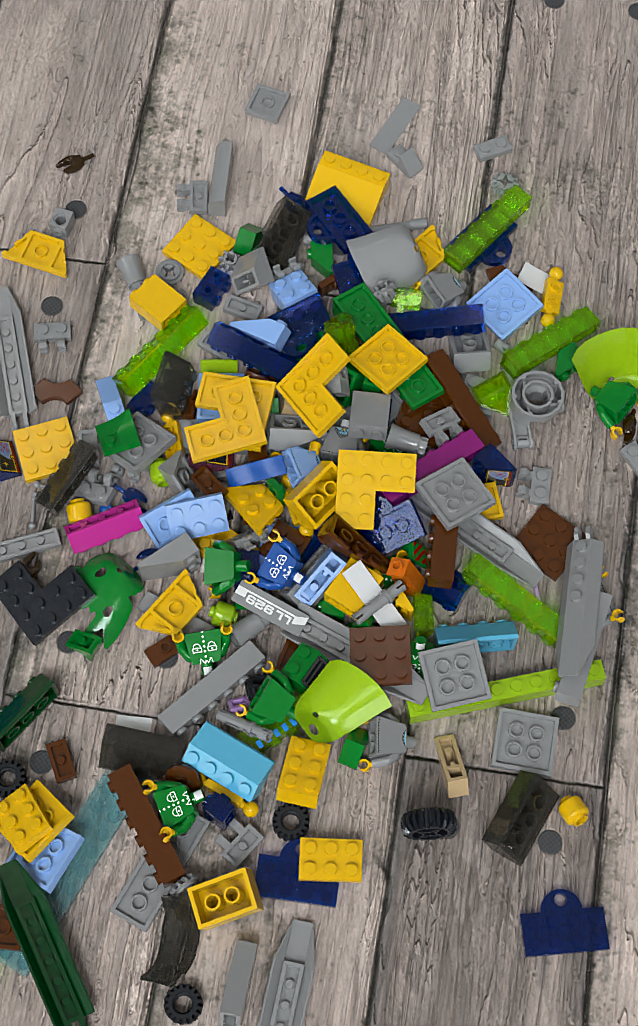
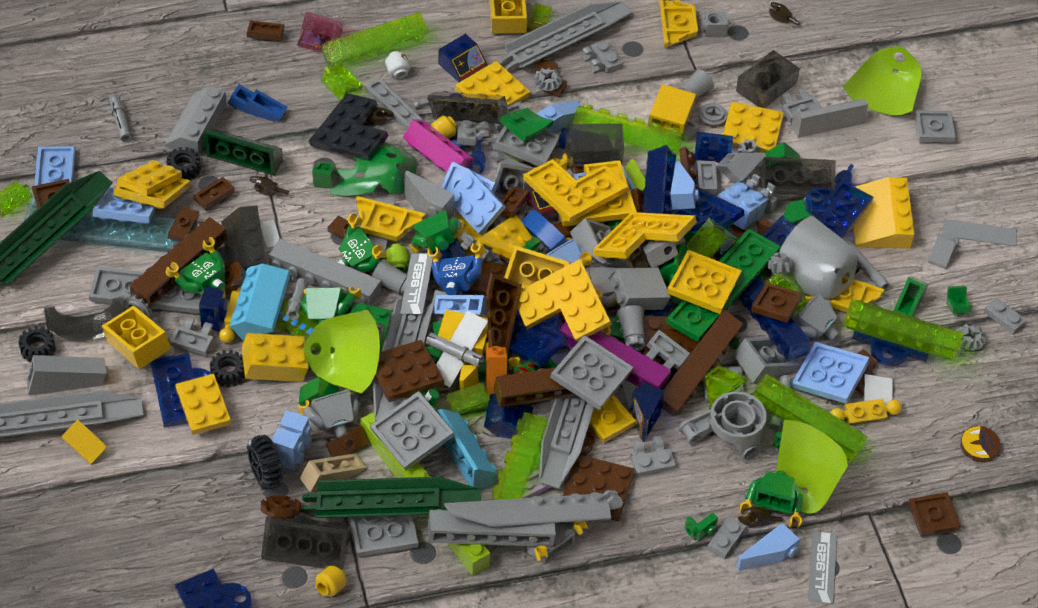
camera: 65 degrees right, 15 degrees down
(57, 400) = (549, 84): none -> light grey gear
(76, 705) = (266, 186): none -> dark brown hand
(95, 804) = (183, 224): none -> reddish brown plate
(155, 208) = (767, 79): none -> clear smoke brick
(206, 120) = (881, 87): none -> lime piece
(216, 314) = (687, 160): none -> reddish brown plate
(330, 993) = (84, 442): none -> yellow slope
(407, 786) = (292, 441): none -> light blue piece
(424, 741) = (347, 442): none -> reddish brown plate
(430, 311) = (777, 302): none -> reddish brown plate
(448, 207) = (911, 296): none -> green slope
(467, 175) = (957, 300): none -> green bracket
(477, 827) = (280, 506): none -> reddish brown tile
(515, 724) = (386, 496): none -> dark green hinge
(615, 227) = (980, 443): none -> tile
(626, 473) = (703, 528): none -> green bracket

